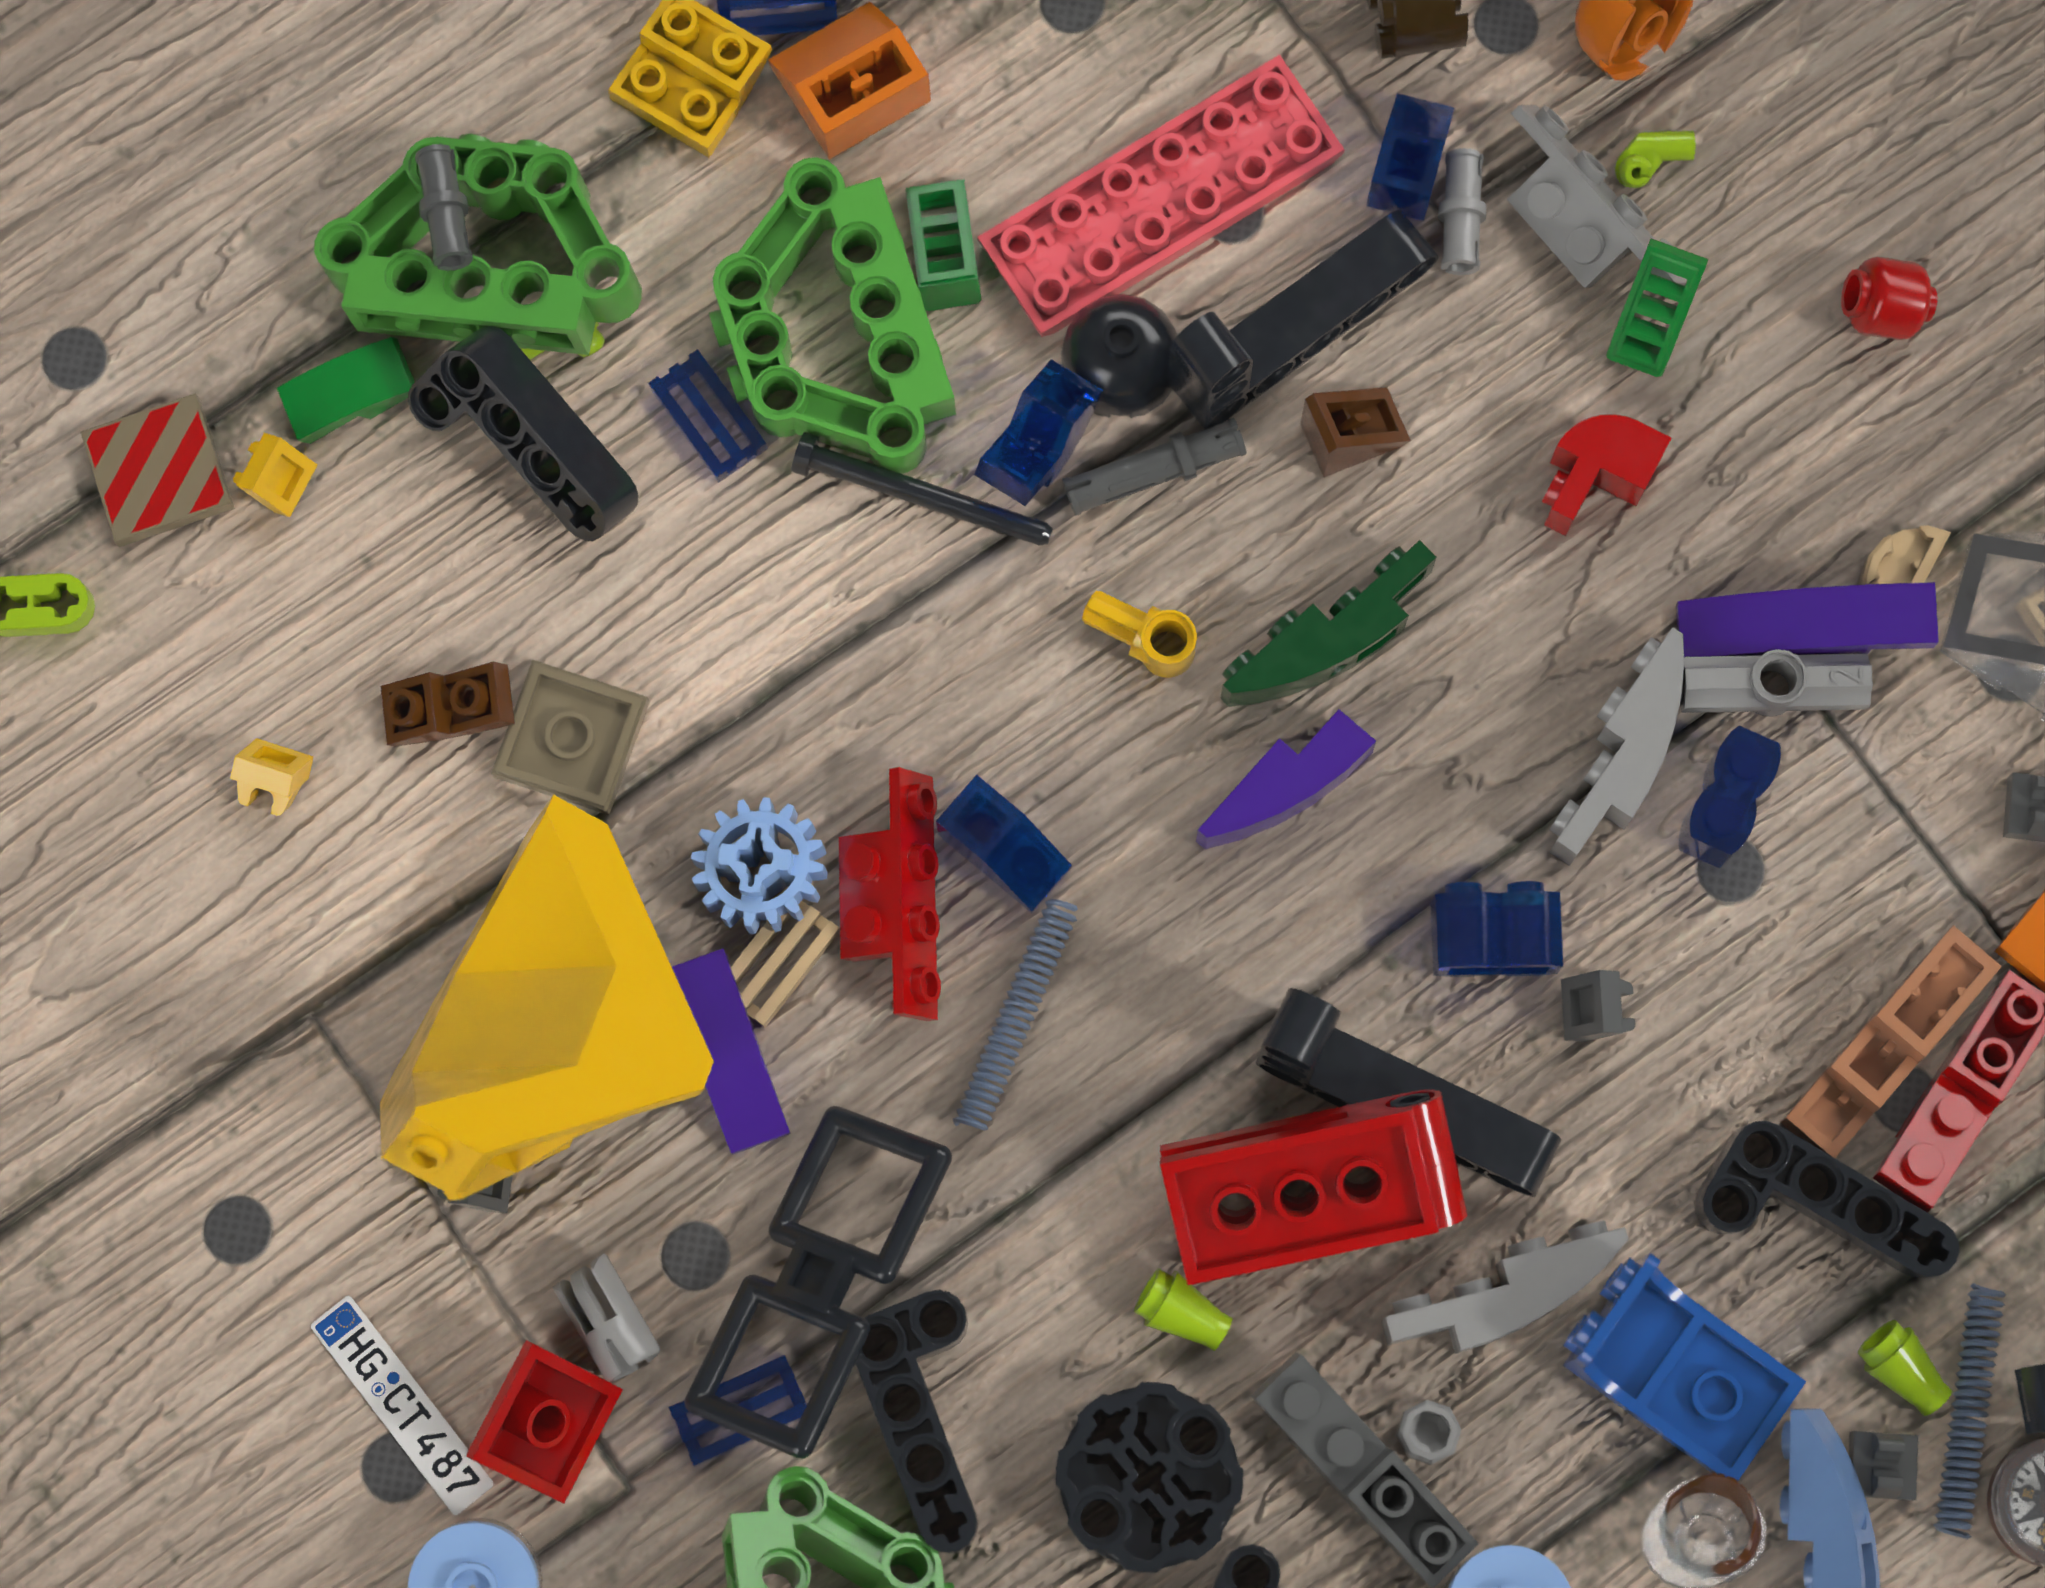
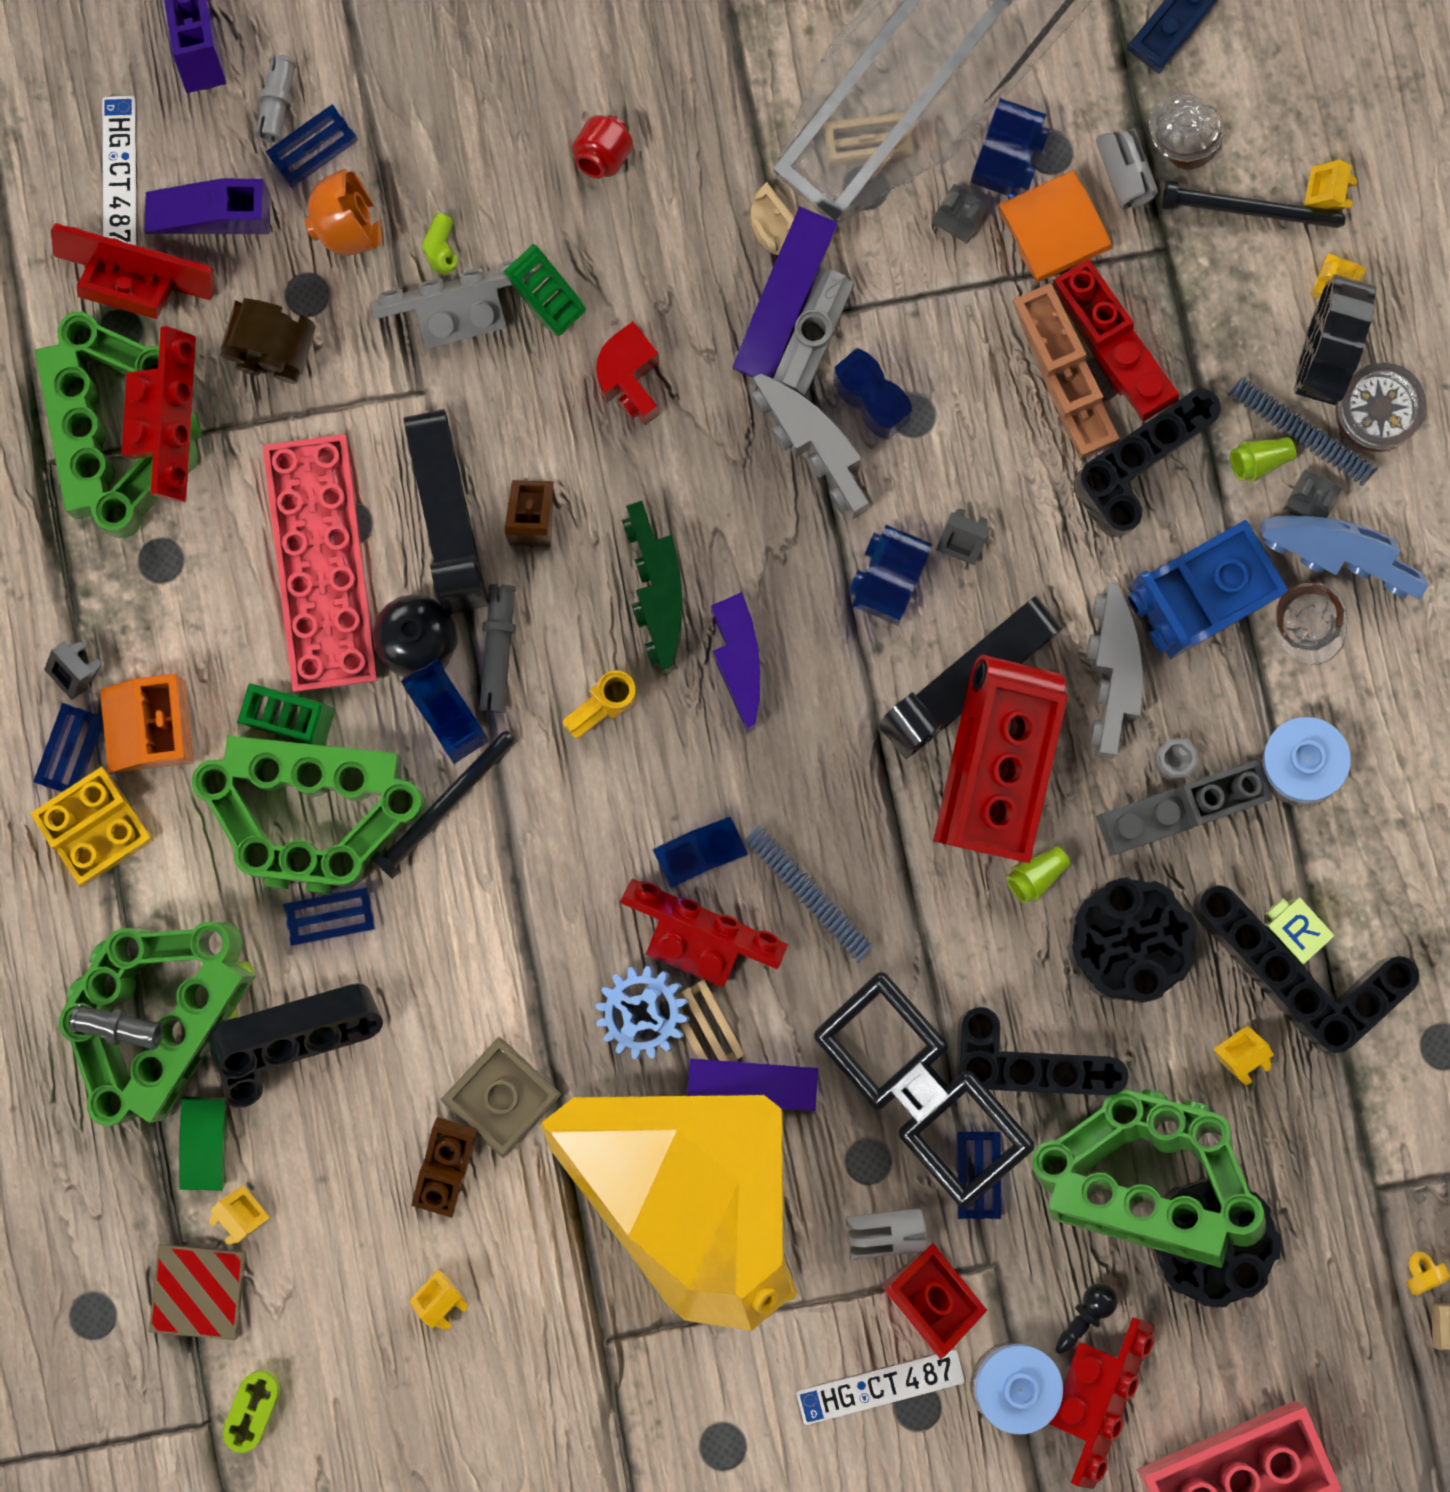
camera: 70 degrees left, 5 degrees up
(1410, 156) = (370, 394): clear blue slope -> none
(1462, 211) = (421, 379): light grey pin -> none

